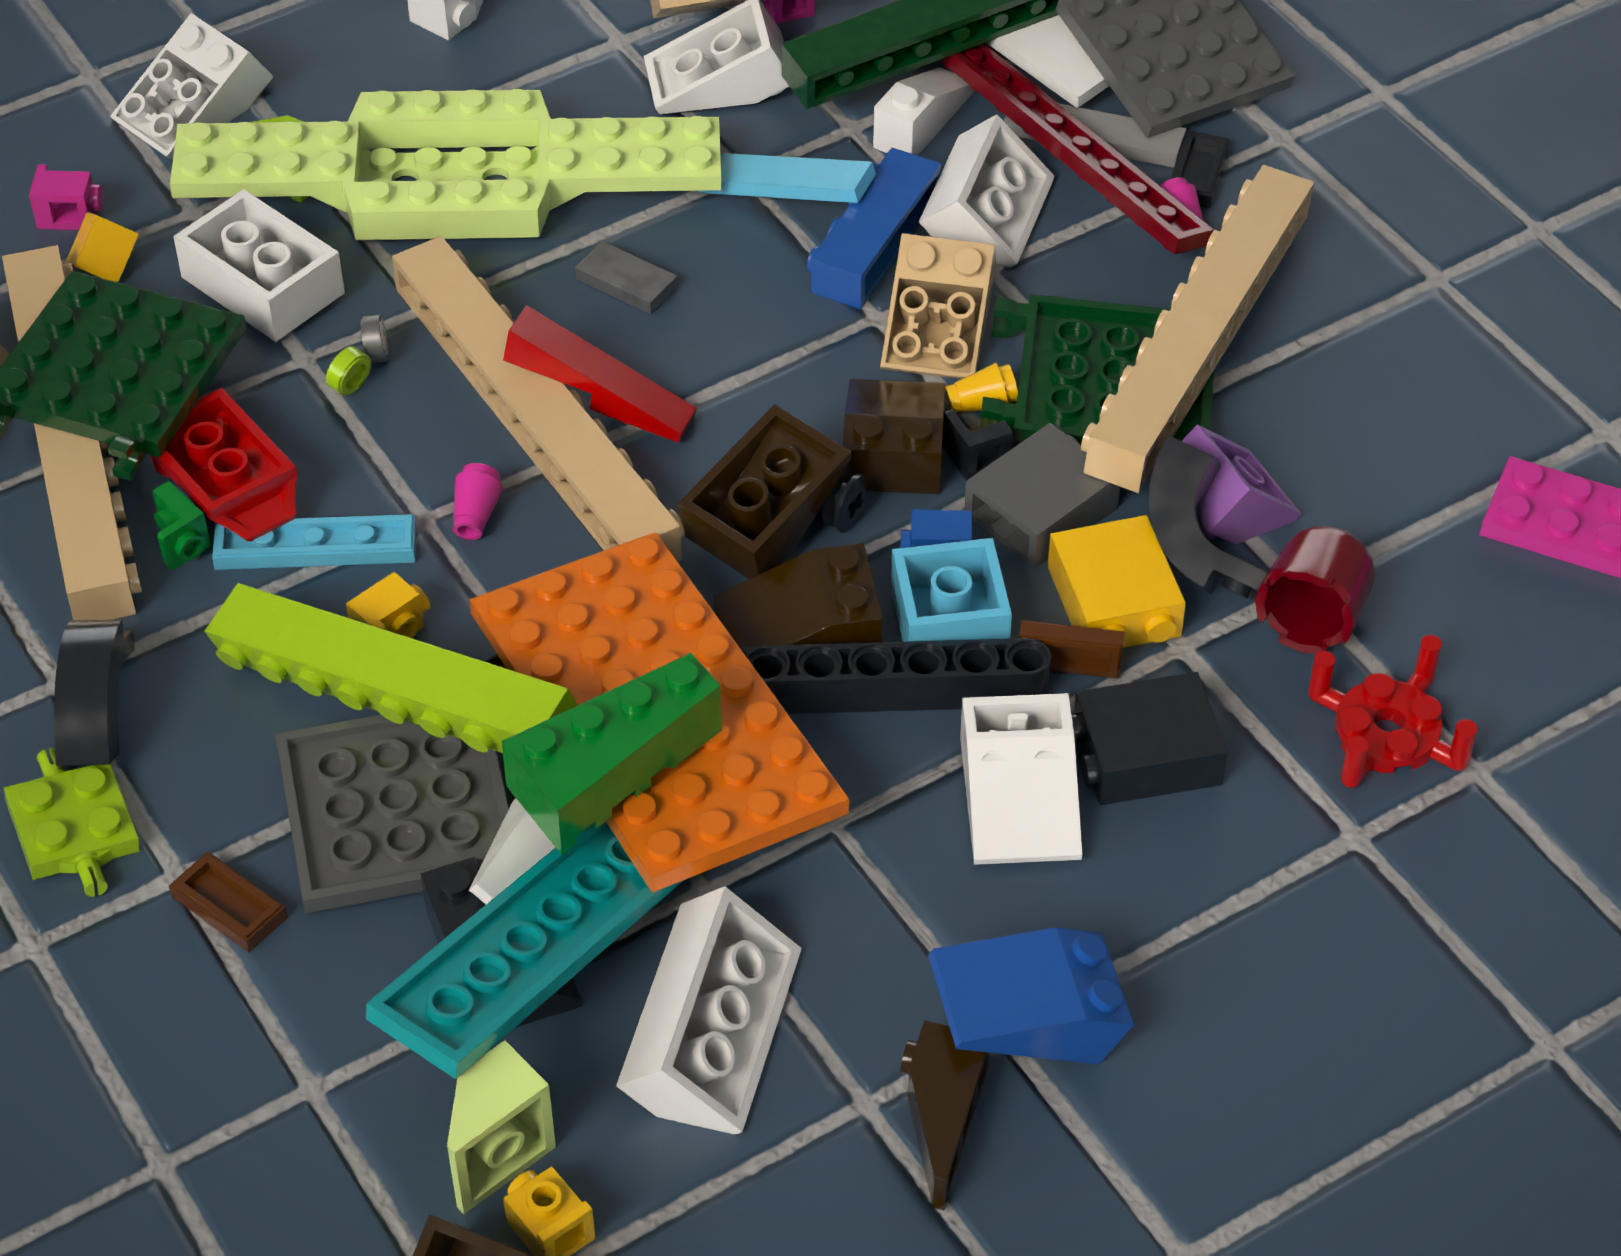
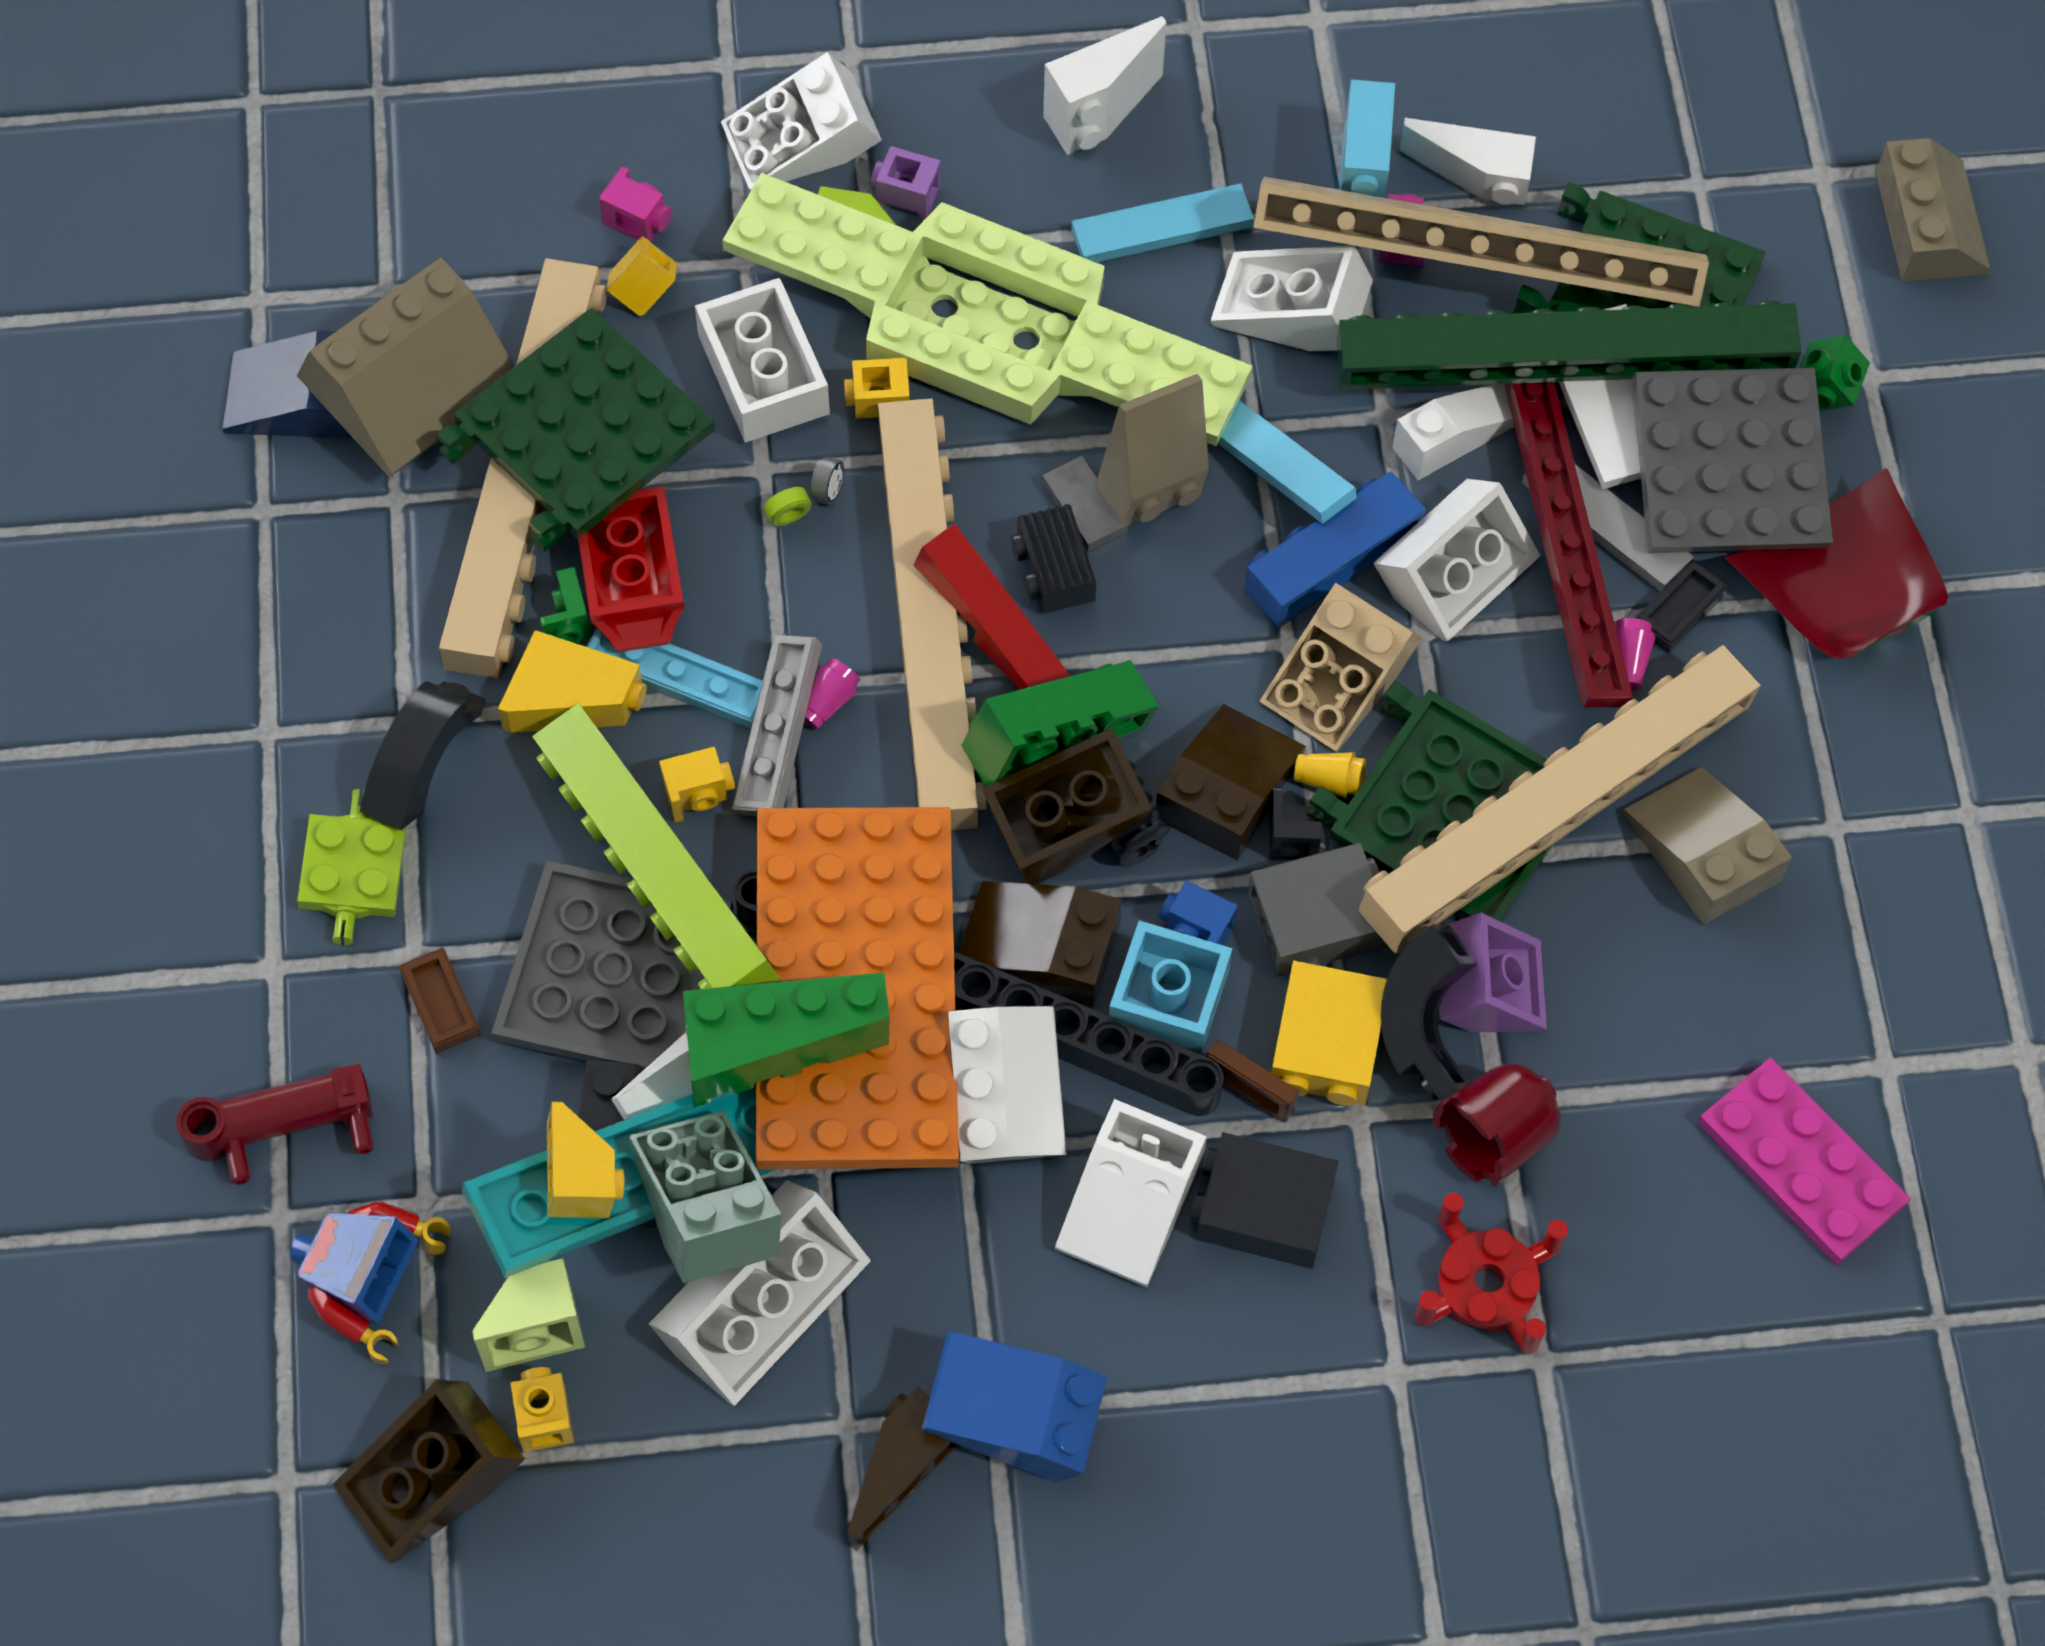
camera: 25 degrees right, 15 degrees up
(107, 1064) = (277, 1113): none -> dark red piece
(201, 575) = (560, 675): none -> yellow slope
(278, 1163) = (358, 1265): none -> torso
(315, 94) = (907, 181): none -> medium lavender brick
(373, 249) = (876, 383): none -> yellow brick
(441, 539) = (777, 724): none -> light grey tile
(480, 940) = (579, 1168): none -> yellow slope
(572, 53) = (1162, 223): none -> medium azure tile
(625, 924) = (706, 1196): none -> sand green slope
(627, 322) = (1054, 558): none -> black brick
(677, 196) = (1156, 452): none -> dark tan slope
(701, 424) = (1053, 716): none -> green wedge
(852, 730) = (1007, 1083): none -> white slope
(1341, 90) = (1861, 587): none -> dark red piece
(1347, 322) = (1709, 843): none -> dark tan slope

